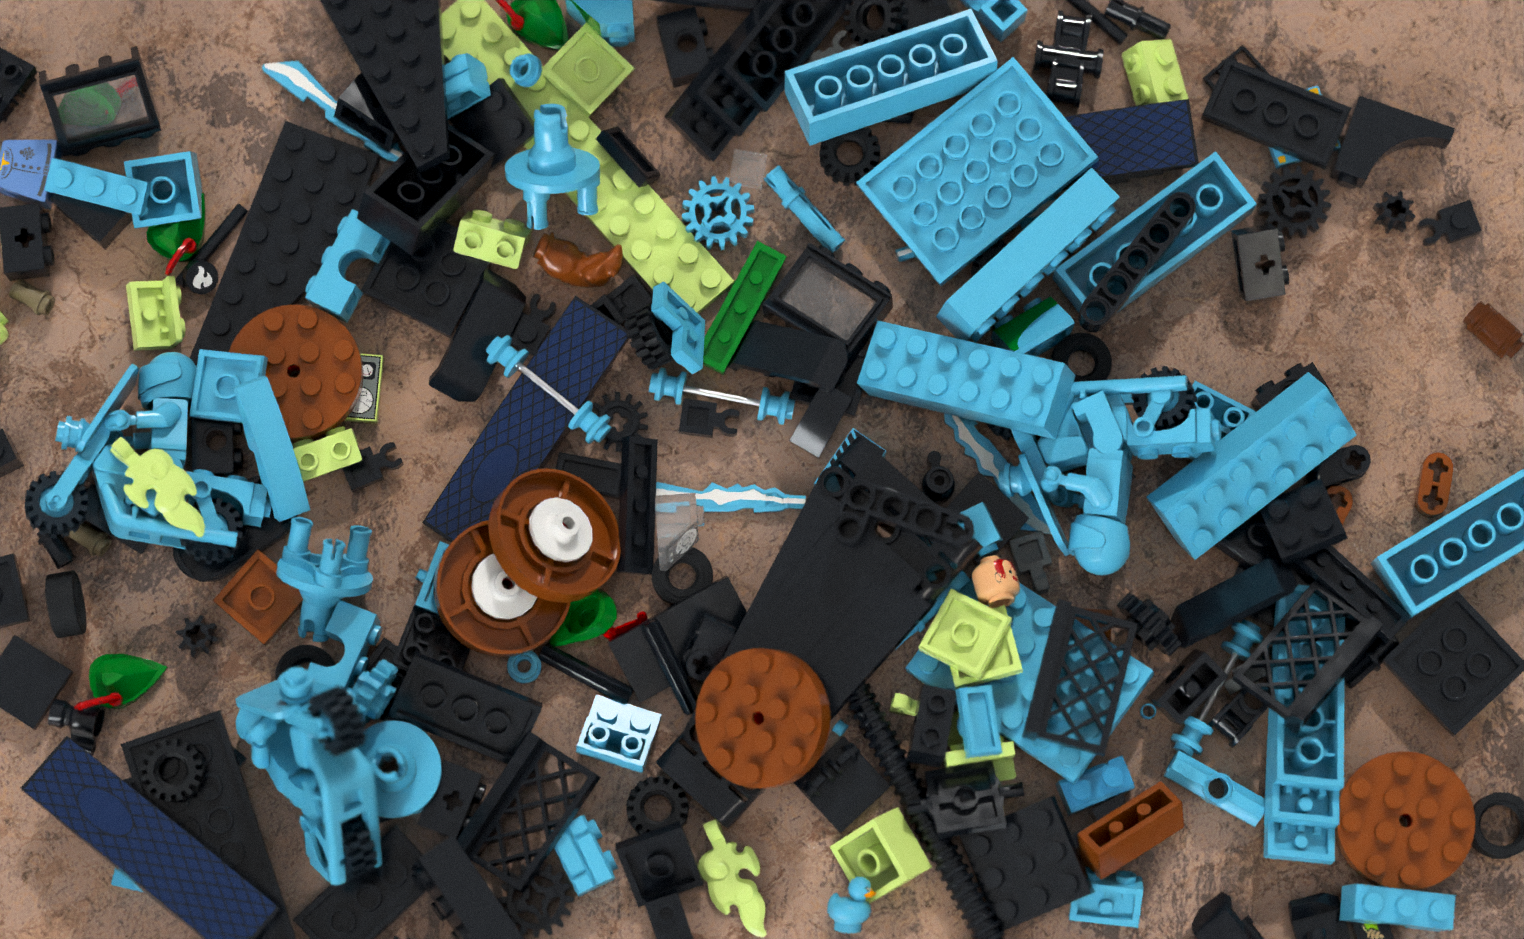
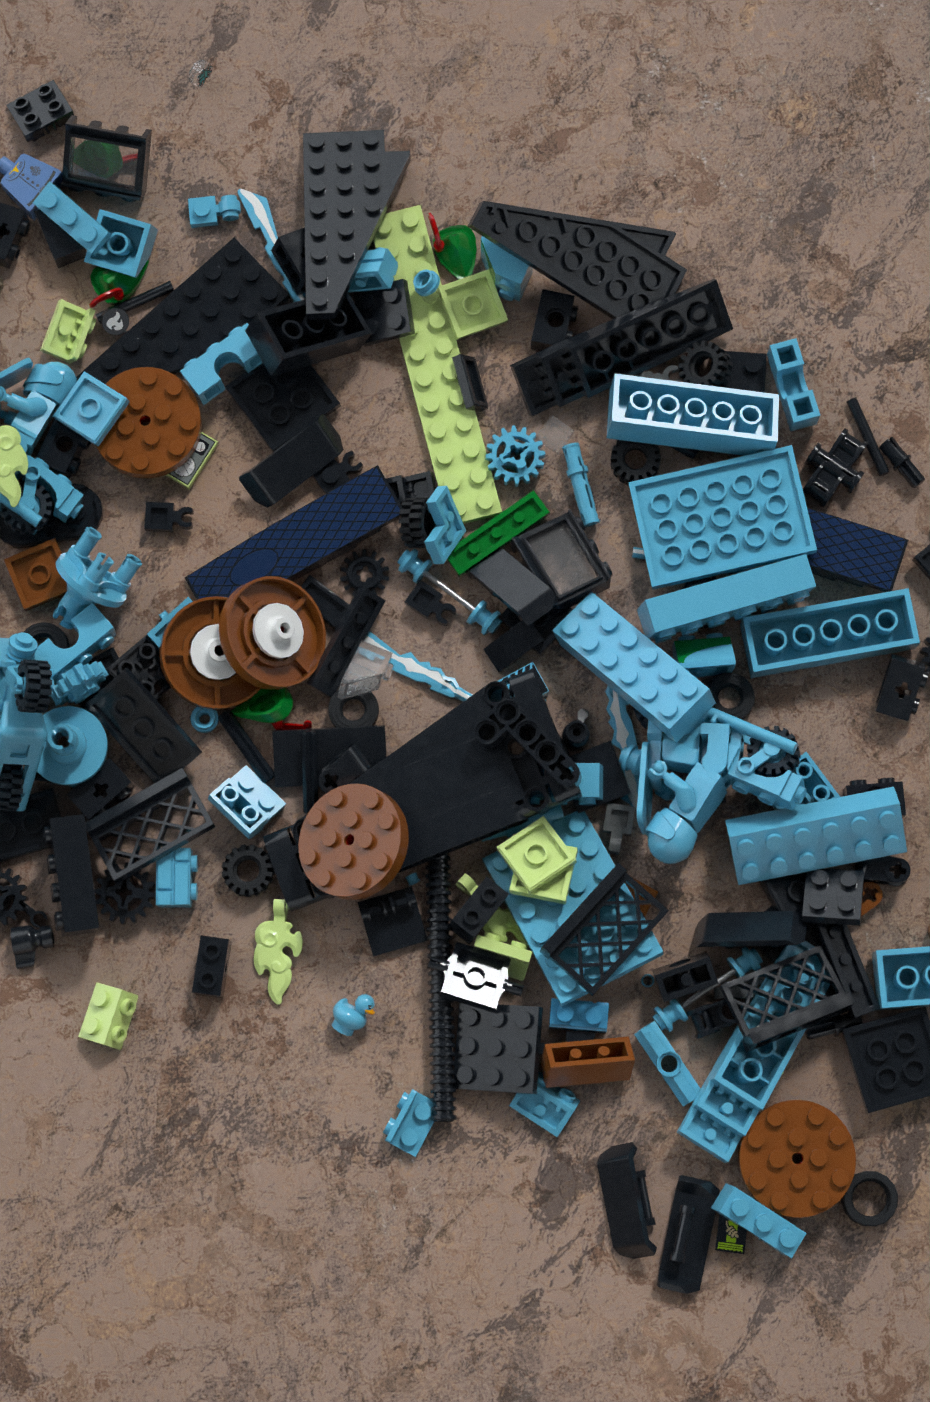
camera: 30 degrees right, 0 degrees up
(238, 108) = (205, 211): none -> medium azure plate
(272, 448) = (98, 468): medium azure slope -> none
(327, 454) = (137, 493): yellowish green bracket -> none
(491, 238) = (339, 394): yellowish green bracket -> none
(502, 352) = (307, 491): medium azure axle -> none
(553, 168) = (407, 363): medium azure piece -> none
(565, 262) = (386, 440): dark orange animal -> none
(659, 863) = (227, 911): black plate -> none
(882, 853) = (395, 986): yellowish green slope -> none
(978, 721) = (513, 924): medium azure tile -> none
(995, 582) = (579, 827): light nougat head -> none
(1146, 249) = (815, 631): black beam -> none
(1153, 626) = (680, 917): black gear -> none
(1154, 72) = (894, 508): yellowish green bracket -> none

